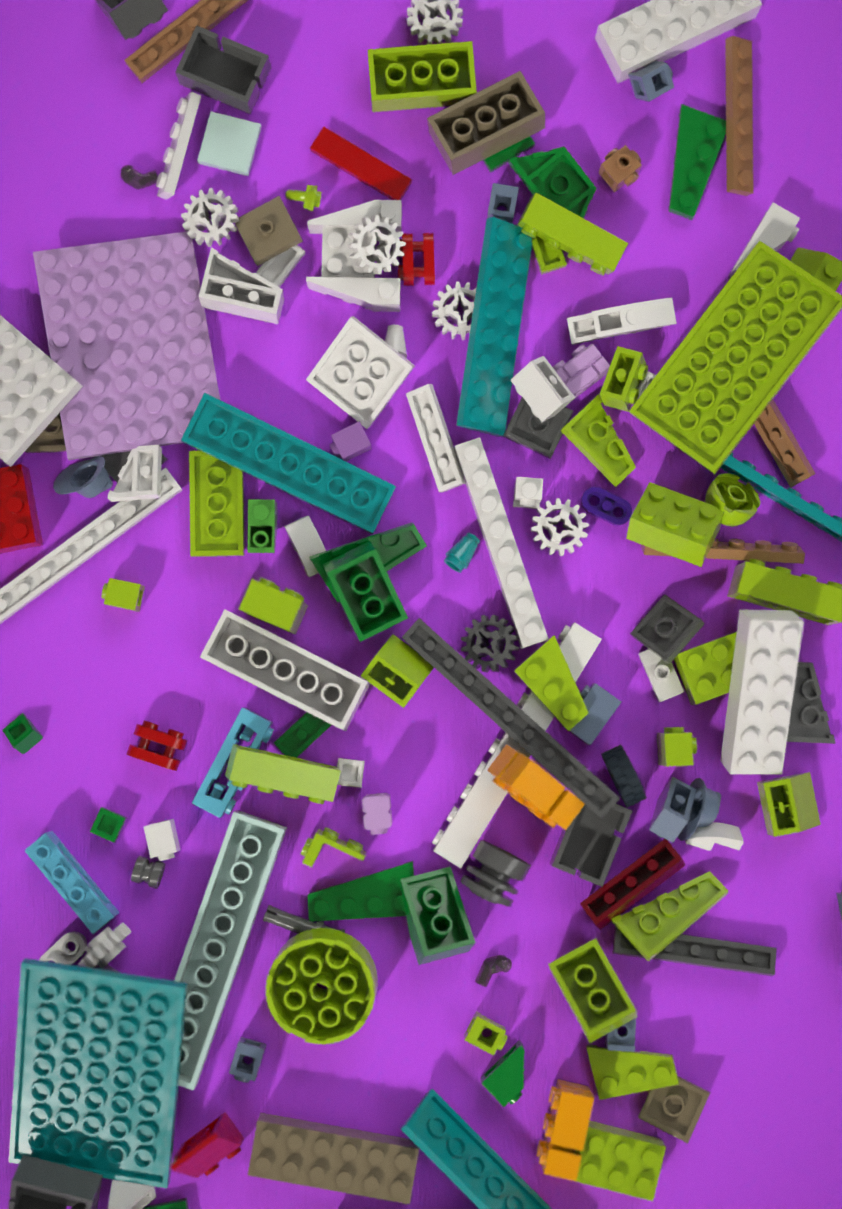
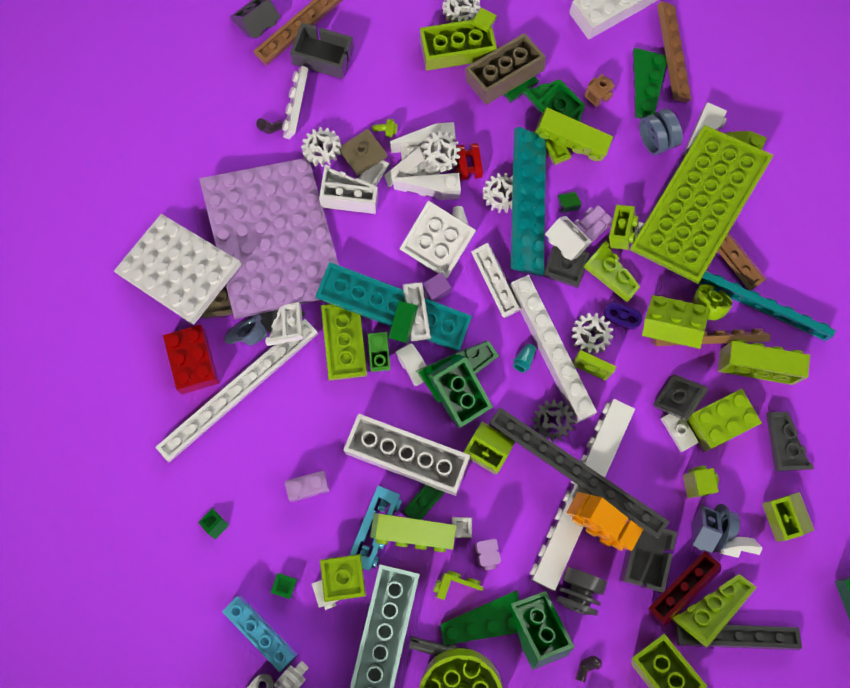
camera: 10 degrees left, 10 degrees down
(123, 594) = (281, 412): lime brick -> none
(149, 698) = (307, 486): none -> lavender brick
(149, 732) = (327, 516): red brick -> none
(149, 872) = (316, 619): dark grey wheel -> none
(184, 824) = (342, 578): none -> lime tile
(229, 143) = (330, 99): light aqua tile -> none
(273, 606) = (394, 406): lime brick -> none
(298, 488) = (403, 322): none -> green tile
(318, 474) = (415, 295): none -> white tile
(324, 260) = (404, 166): none -> white sticker
(360, 164) = (421, 104): red tile -> none
(462, 46) = (484, 20): none -> lime tile
(503, 196) = (522, 118): sand blue brick -> none
(528, 492) = (566, 311): white brick -> none
(553, 574) = (593, 365): none -> lime tile
(553, 684) = (605, 444): lime wing -> none
(554, 332) = (569, 202): none -> green slope
(600, 709) = (634, 464): sand blue brick -> none
(621, 320) = (615, 188): white slope -> none
(623, 776) = (667, 506): black wheel -> none
(651, 81) = (612, 34): sand blue brick -> none
(697, 242) = (660, 131): none -> sand blue wheel
(761, 691) = (758, 434): white brick -> none

